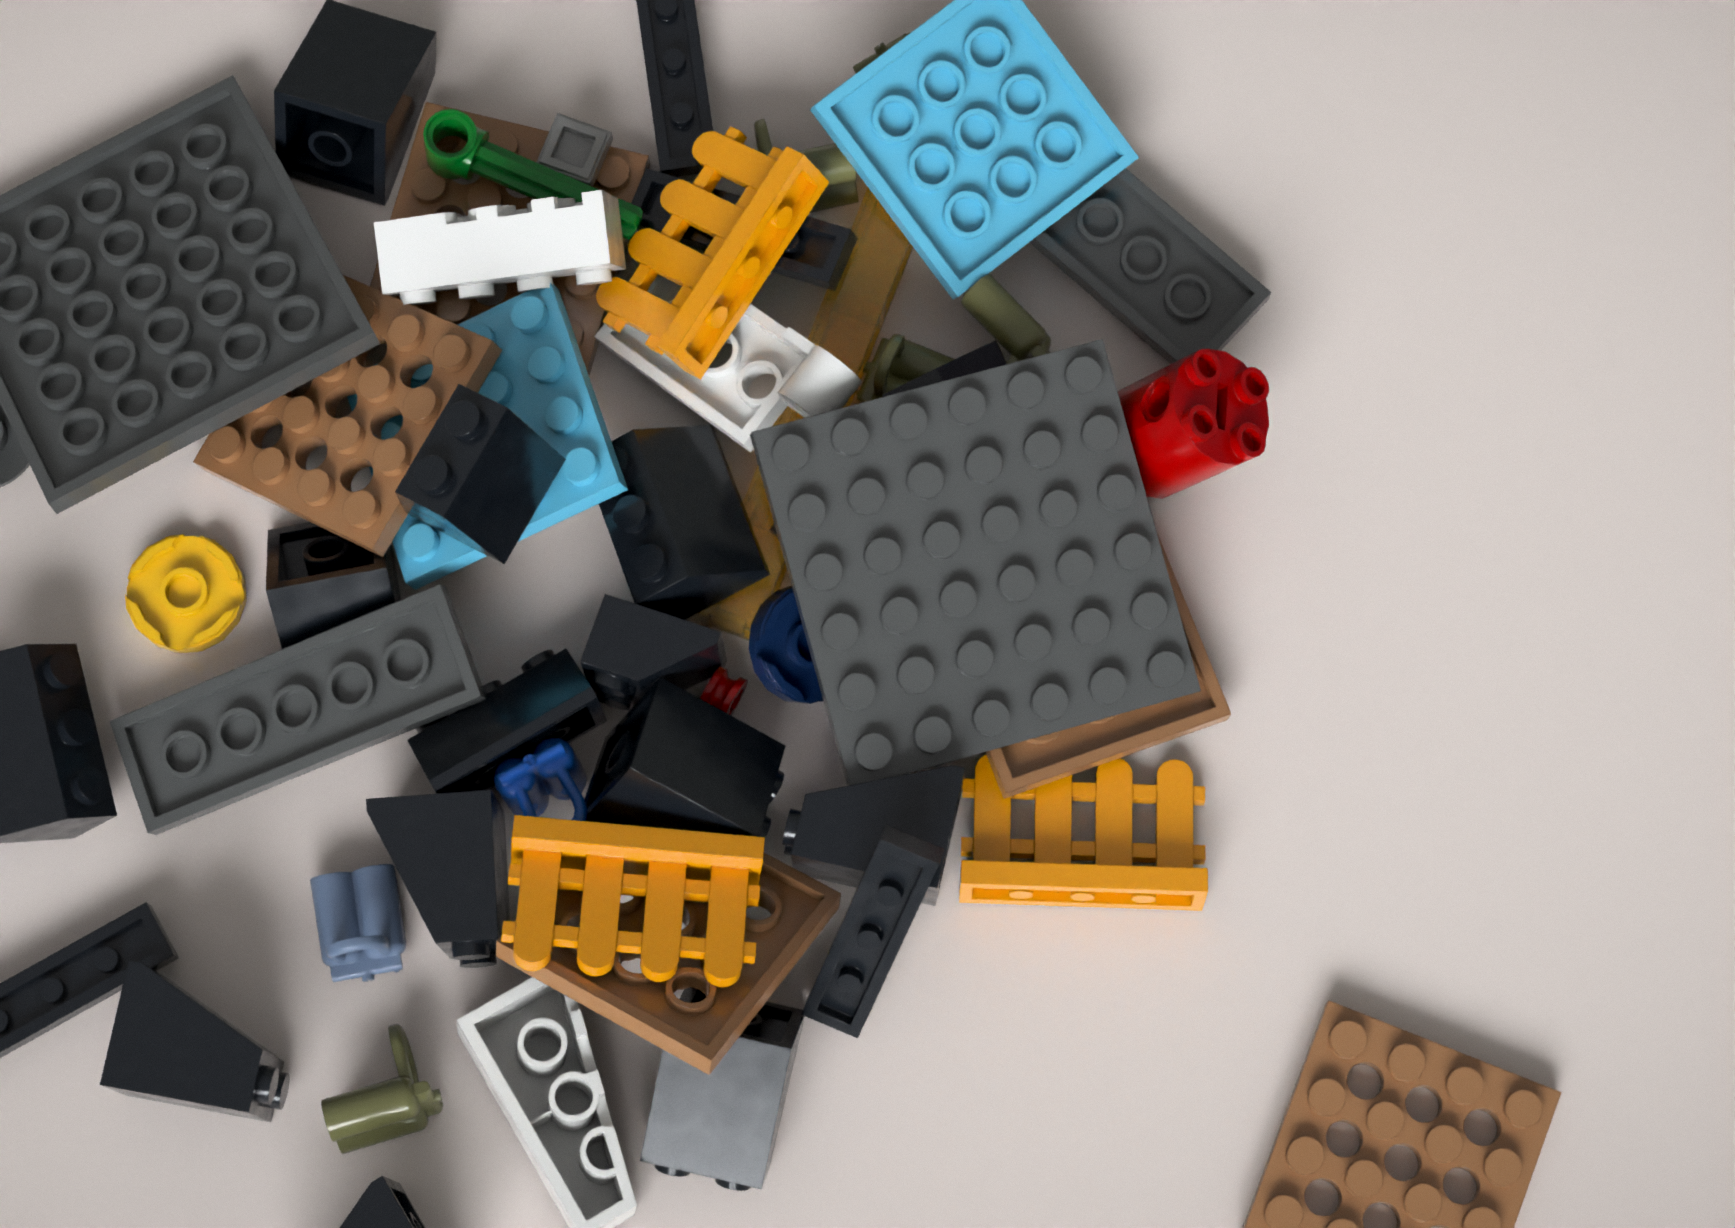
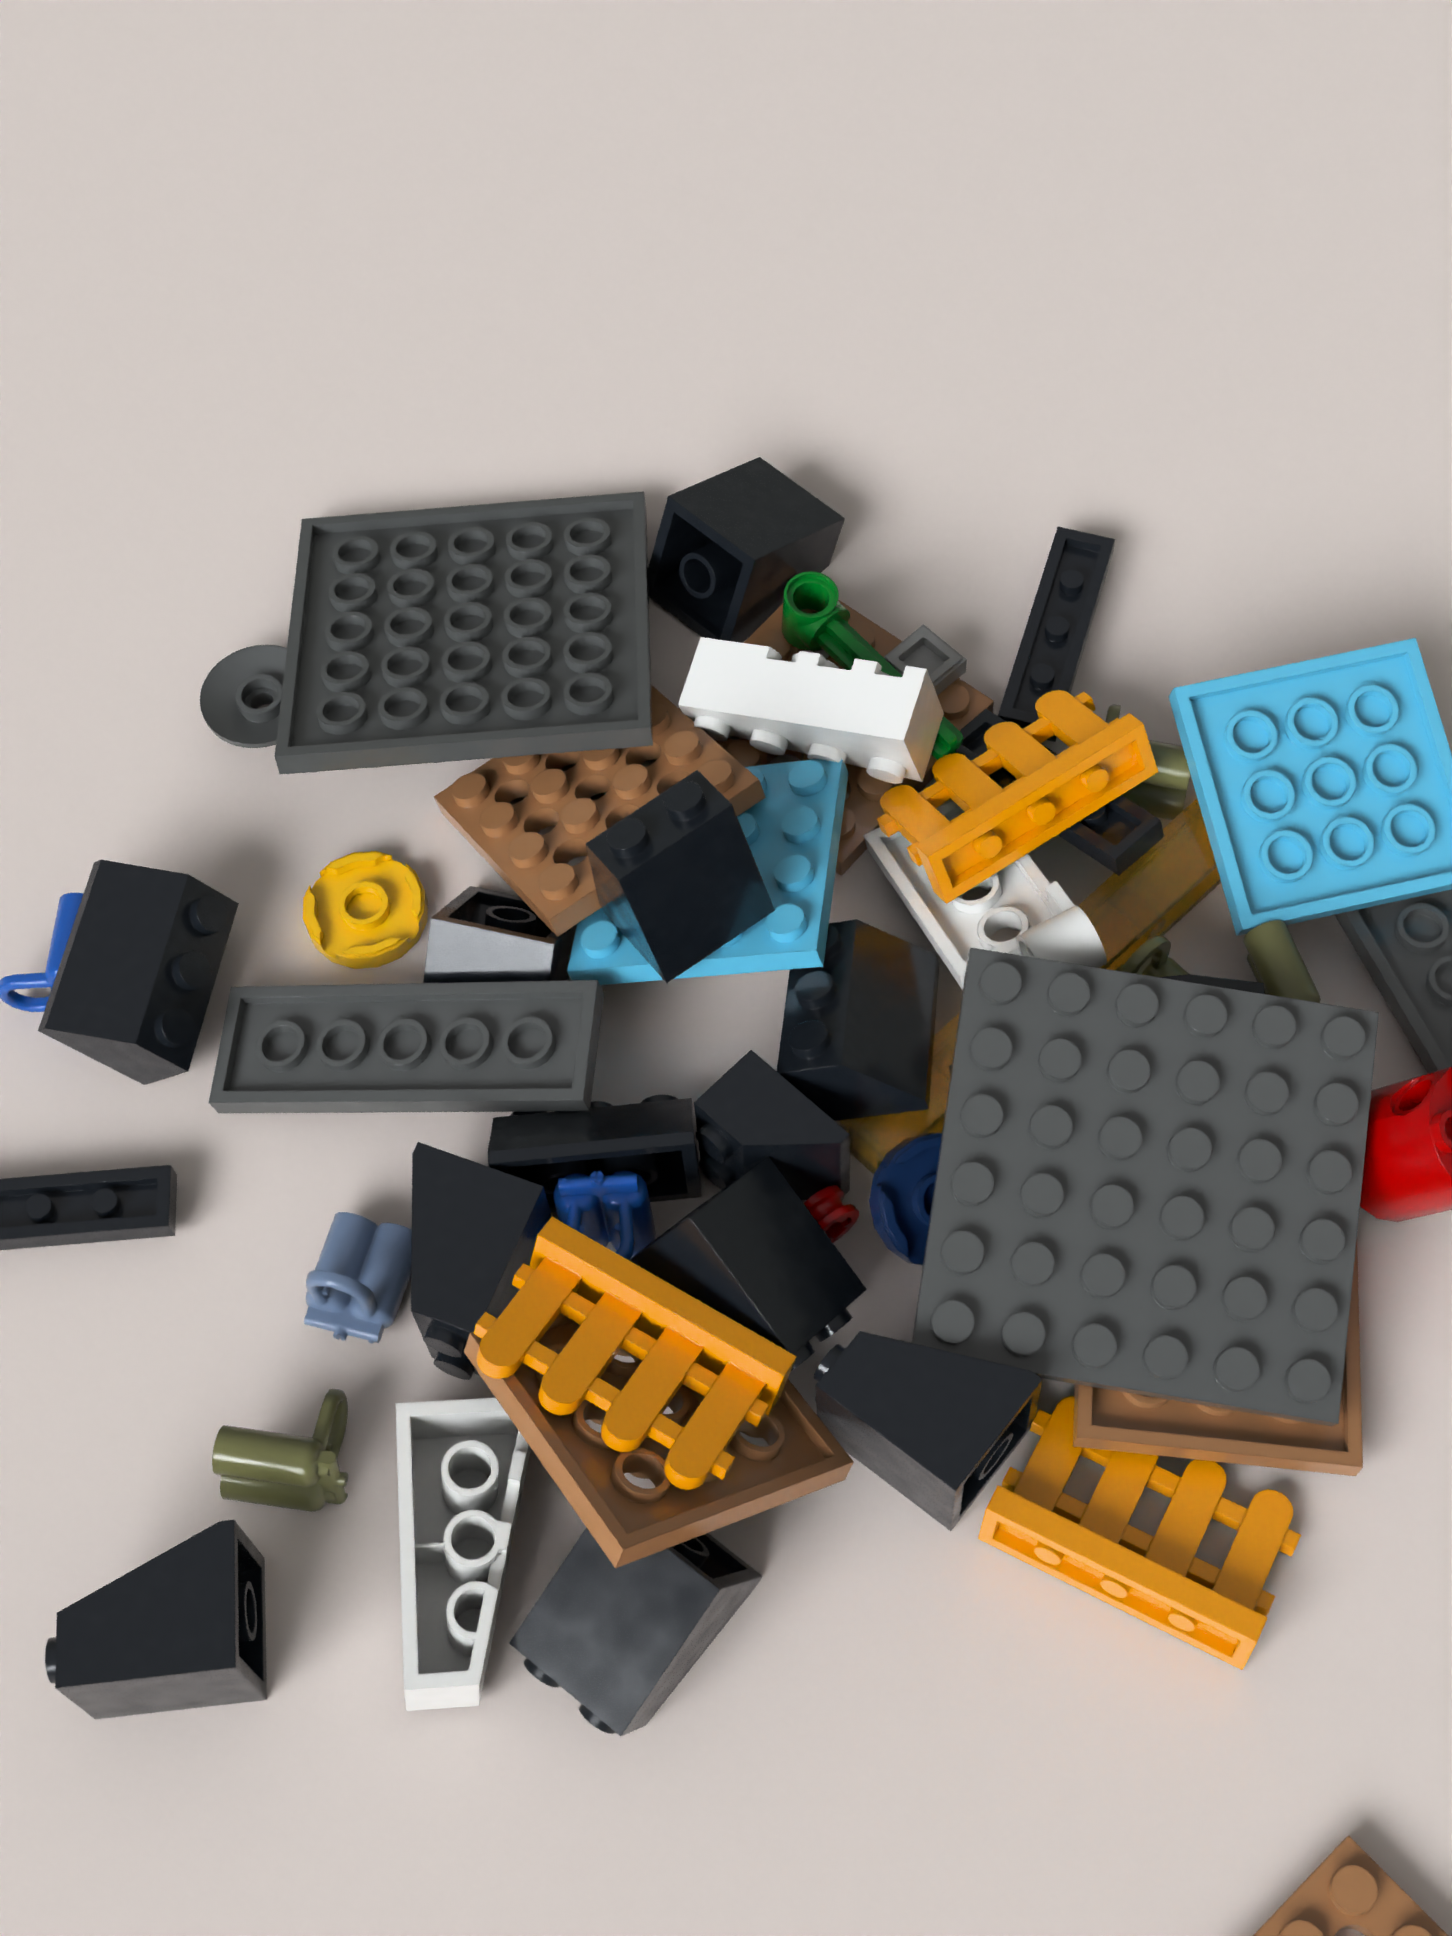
camera: 30 degrees right, 15 degrees down
(186, 1054) = (121, 1320): black slope -> none
(872, 930) = (866, 1507): black plate -> none

